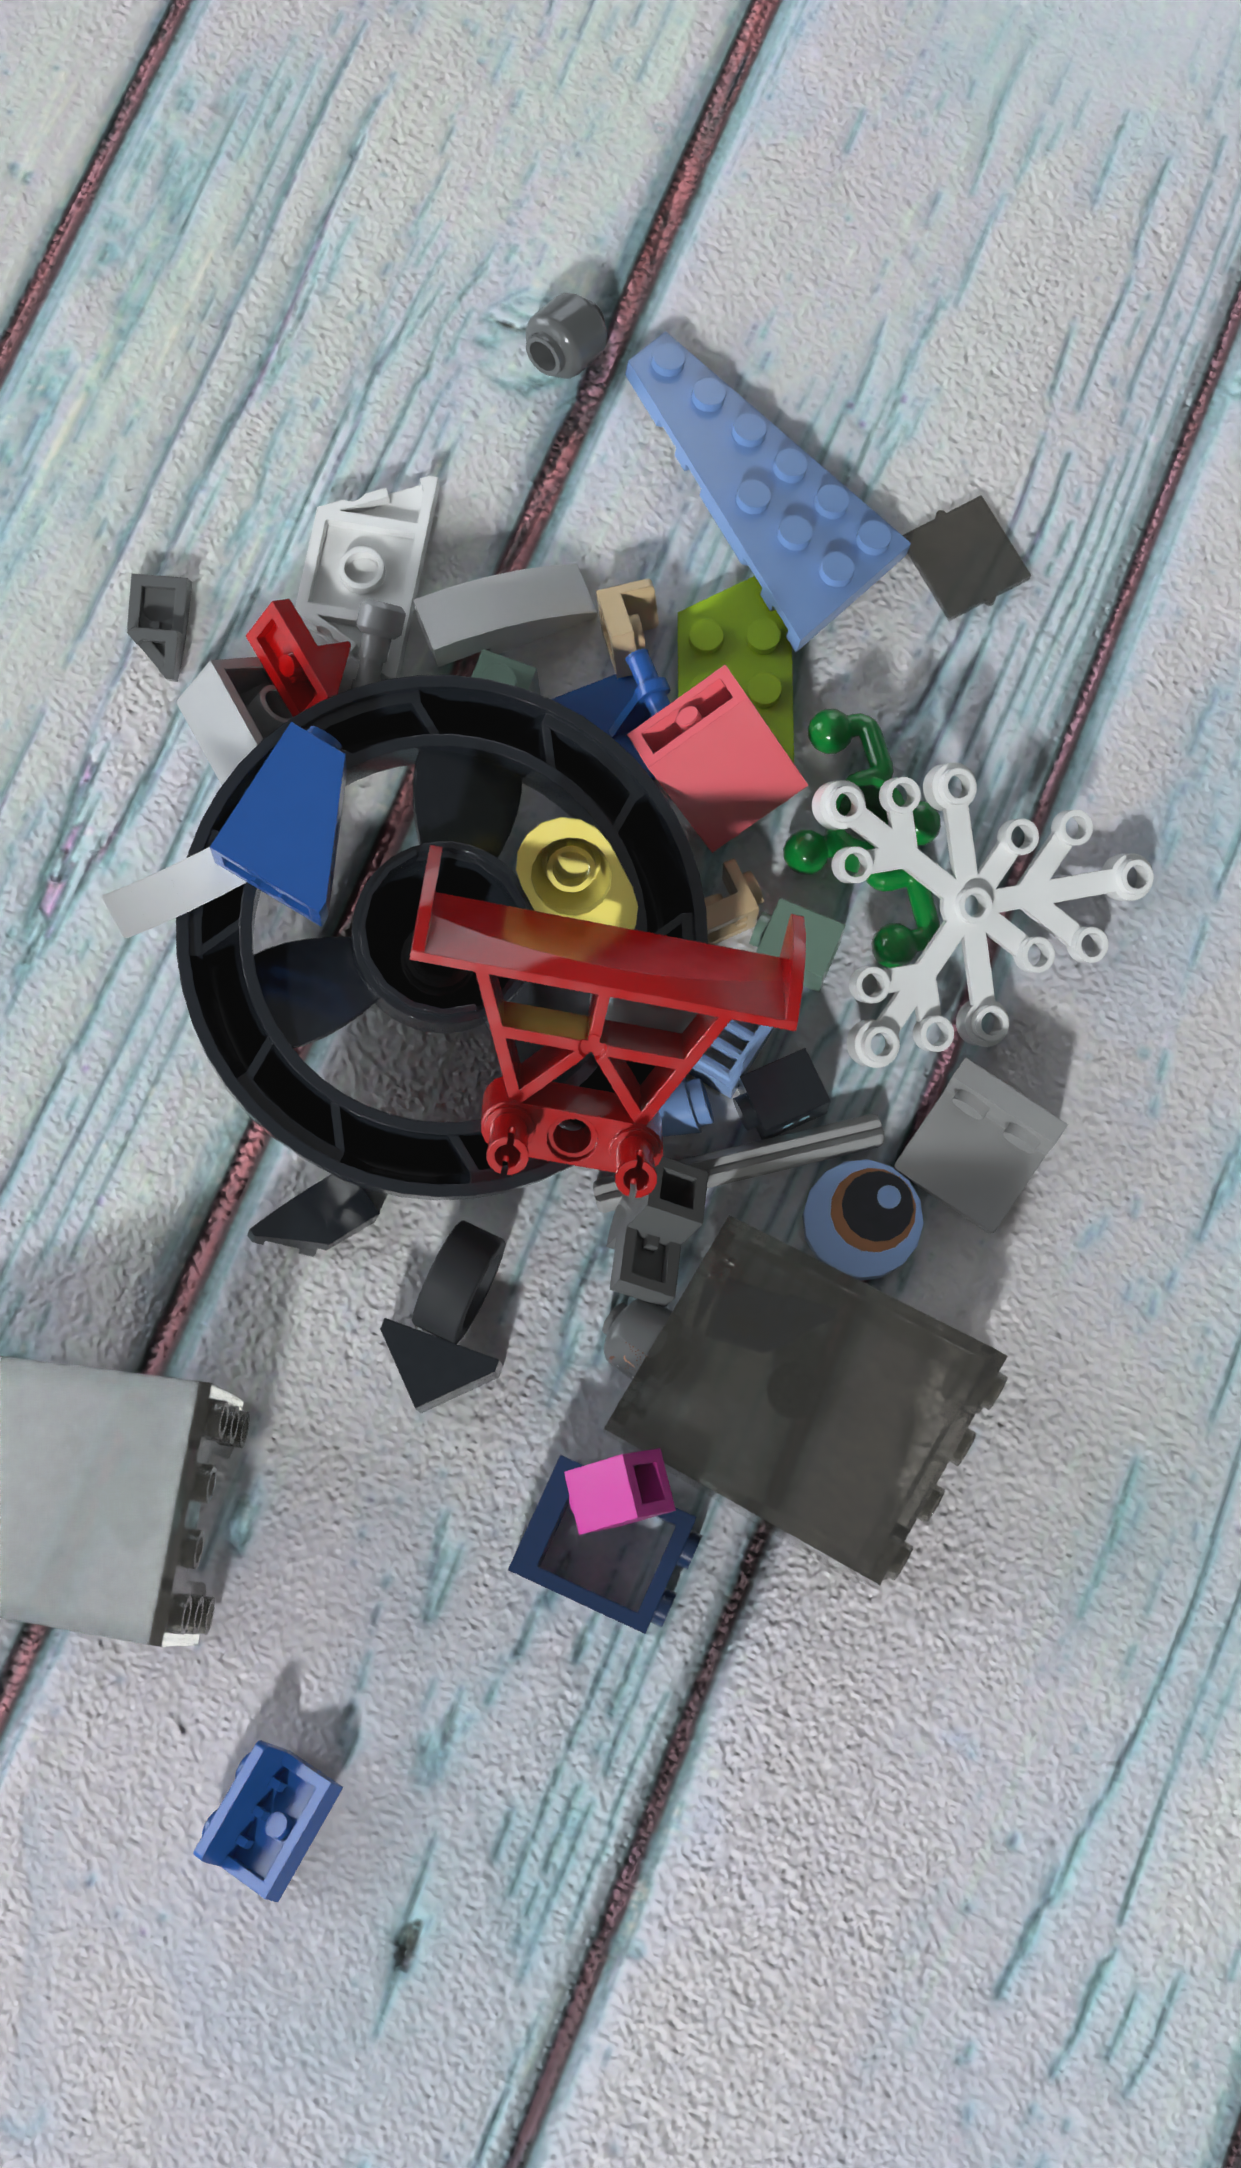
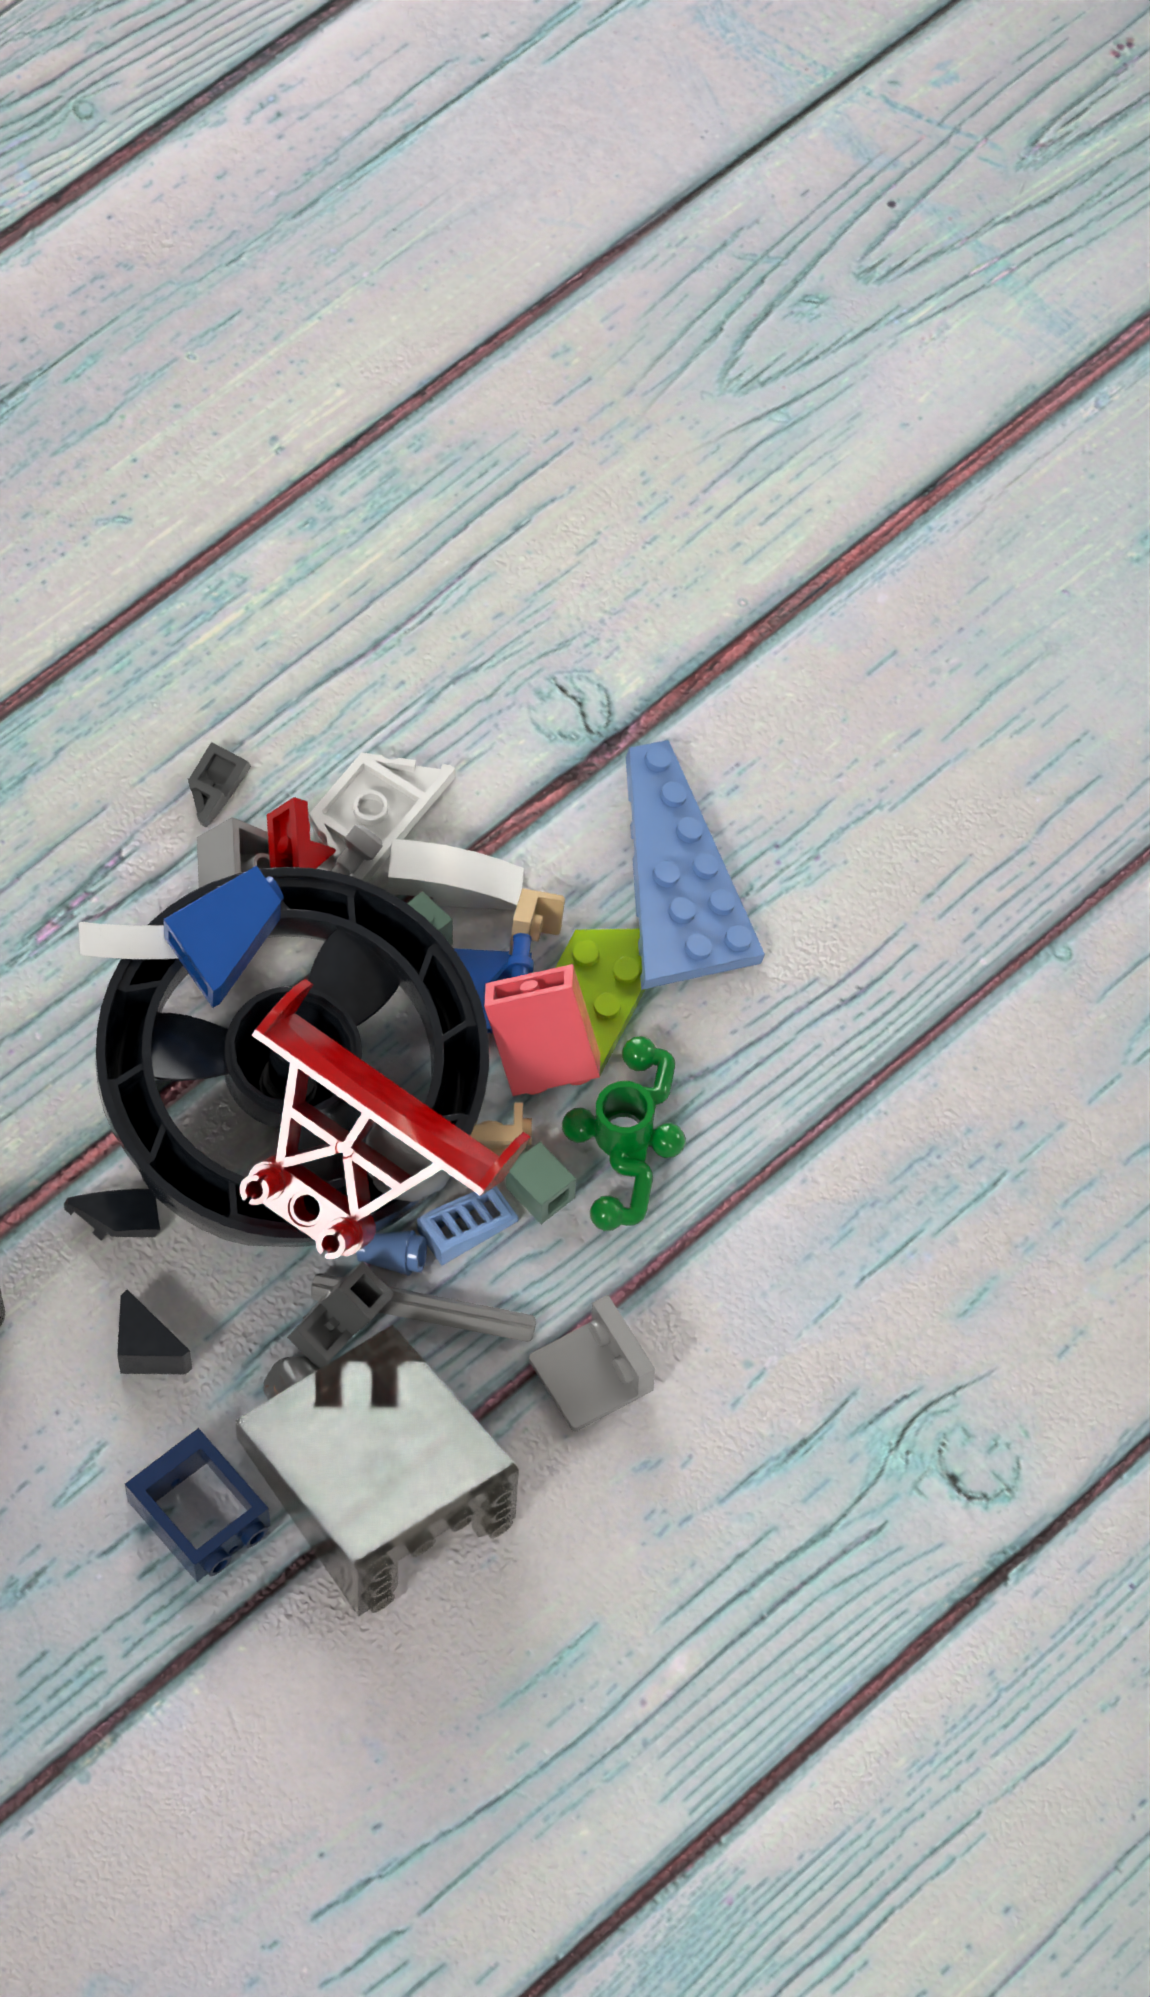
camera: 20 degrees right, 15 degrees down
(458, 1282) = (189, 1289): black tyre -> none
(566, 336) = (595, 713): dark grey head -> none
(575, 874) = (398, 1047): light yellow piece -> none
(619, 1491) = (223, 1456): dark pink brick -> none
(781, 1095) = (474, 1273): black brick -> none
(863, 1219) = (491, 1380): tile -> none
(965, 558) = (801, 982): clear smoke piece -> none
(1033, 894) = (718, 1217): white plant -> none

